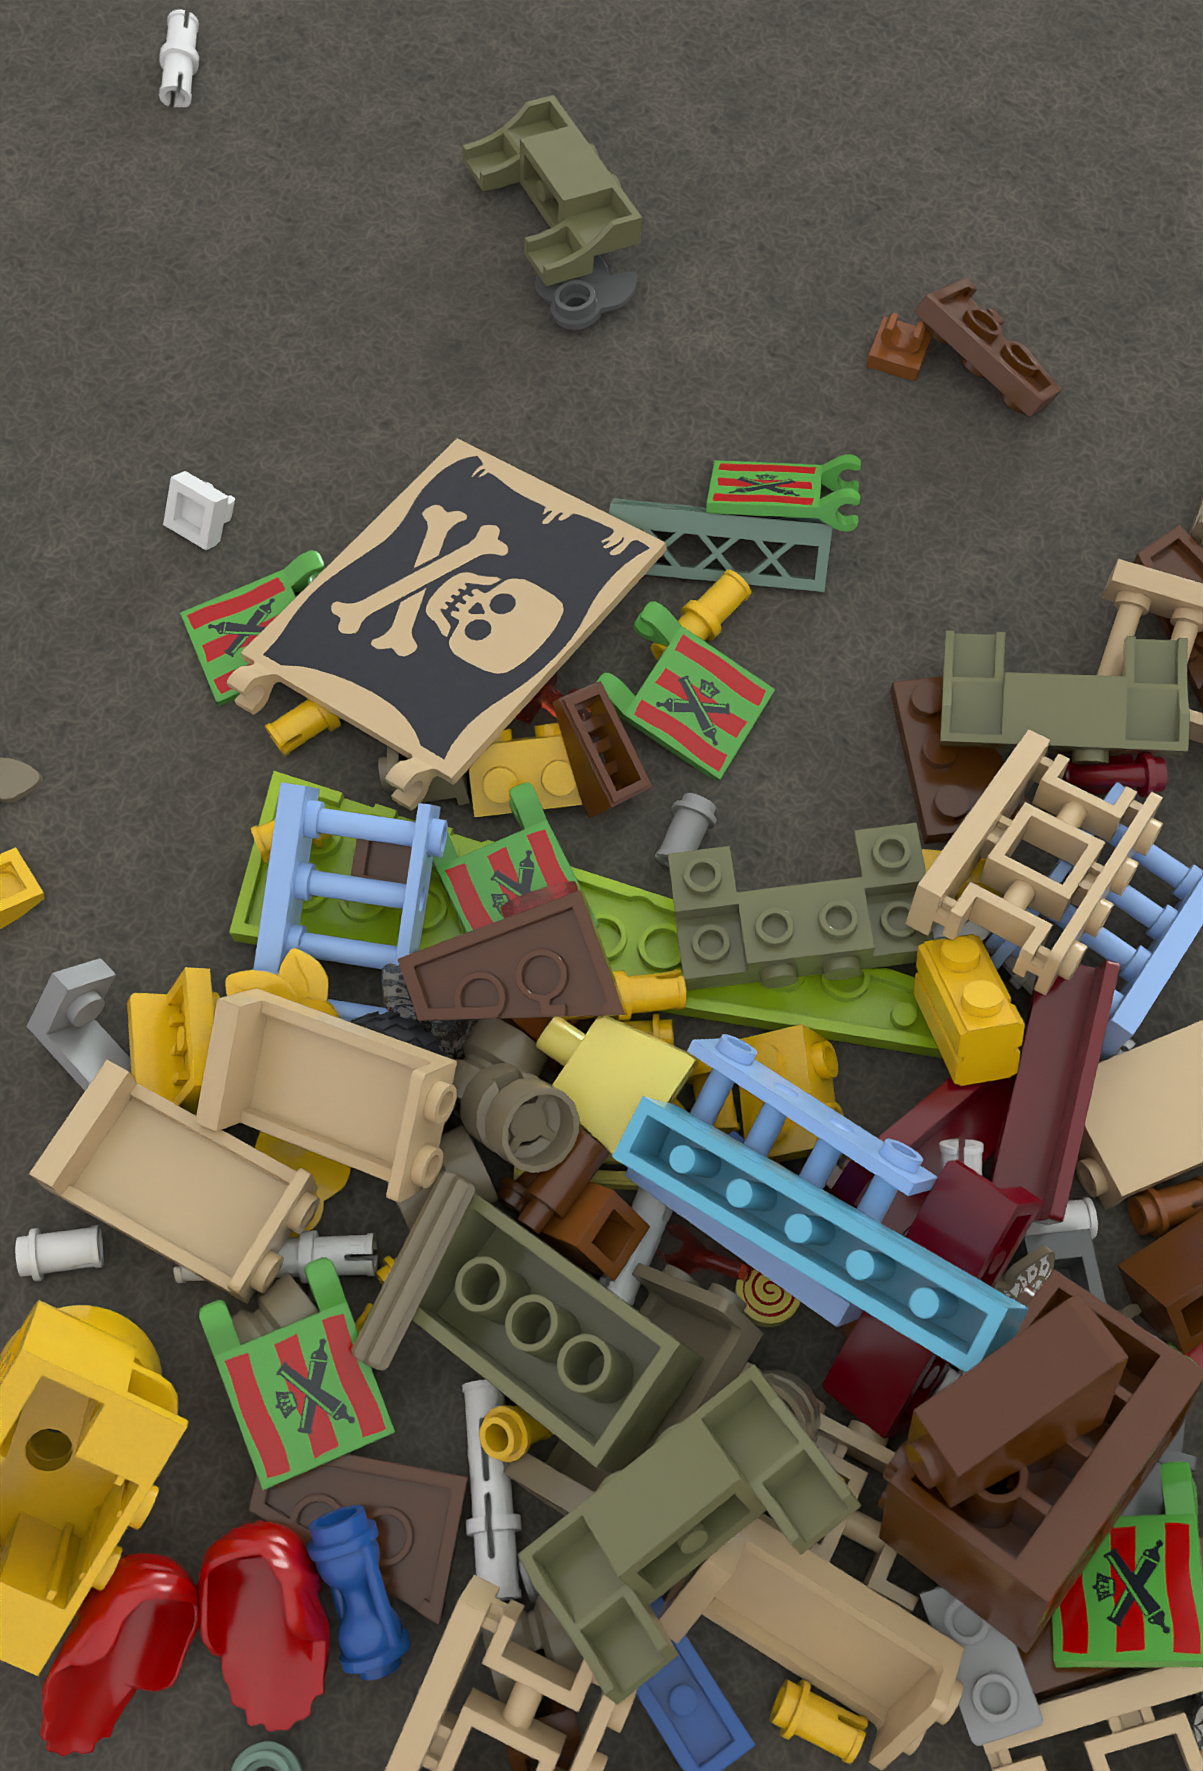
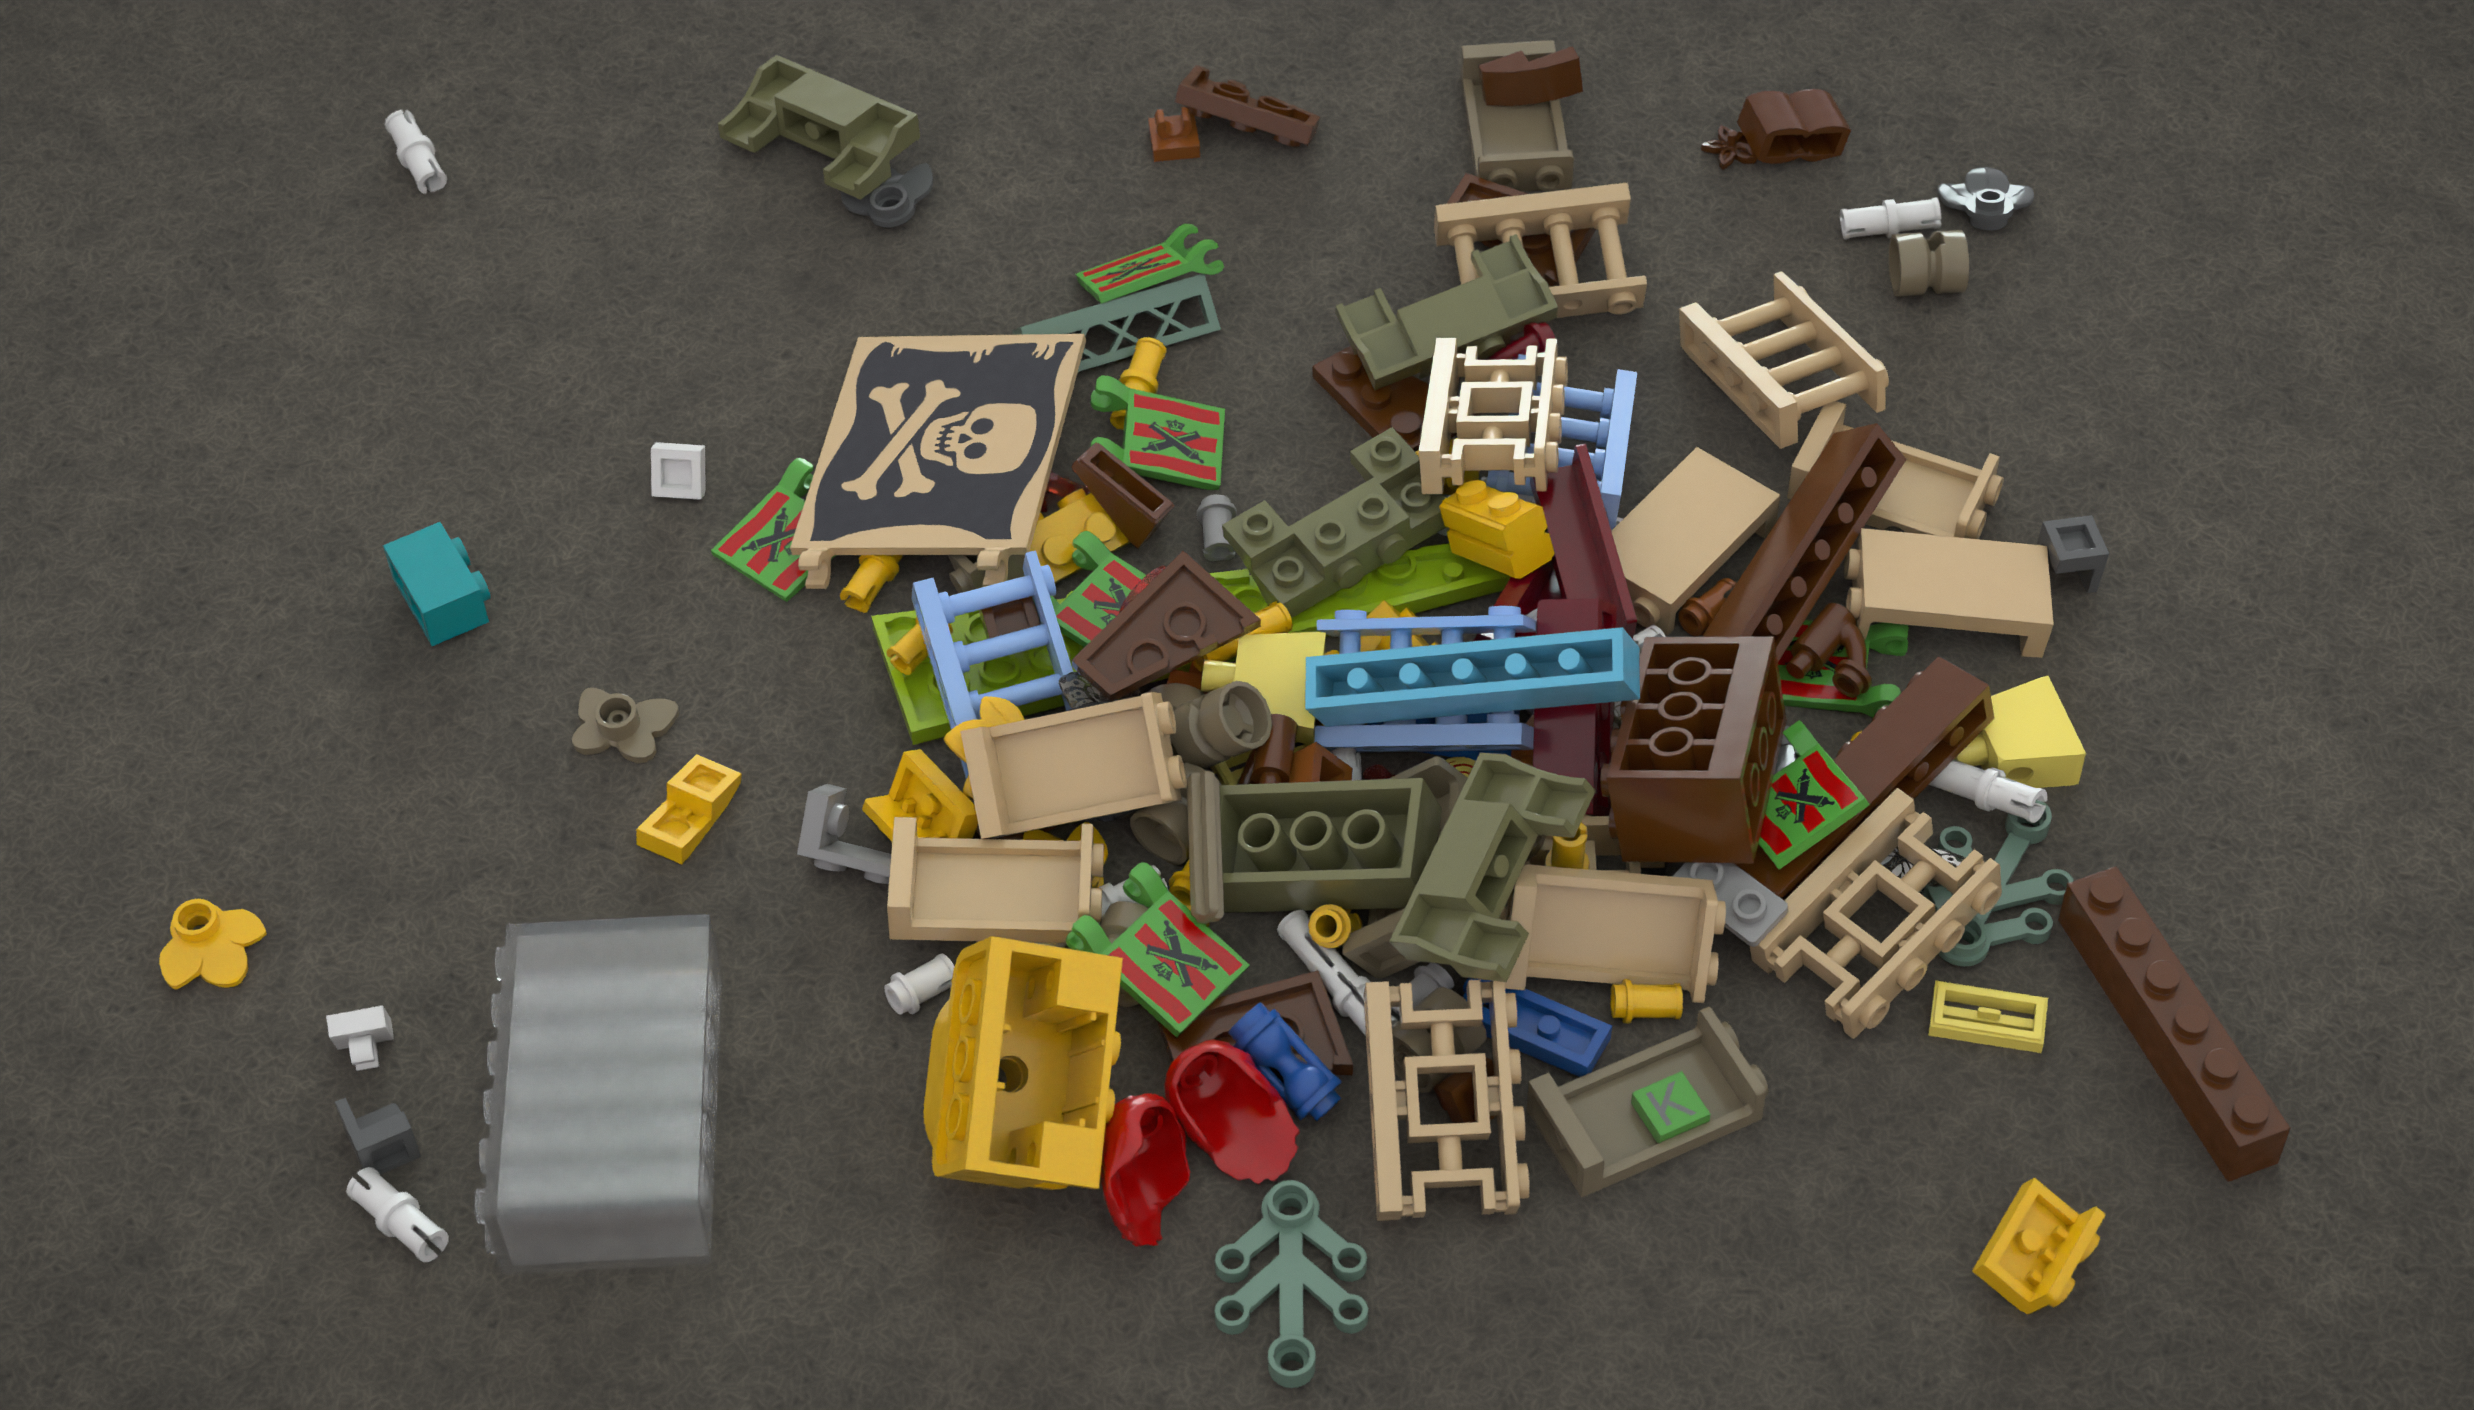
camera: 25 degrees left, 15 degrees down
(1017, 1403) = (1661, 682): reddish brown slope -> none

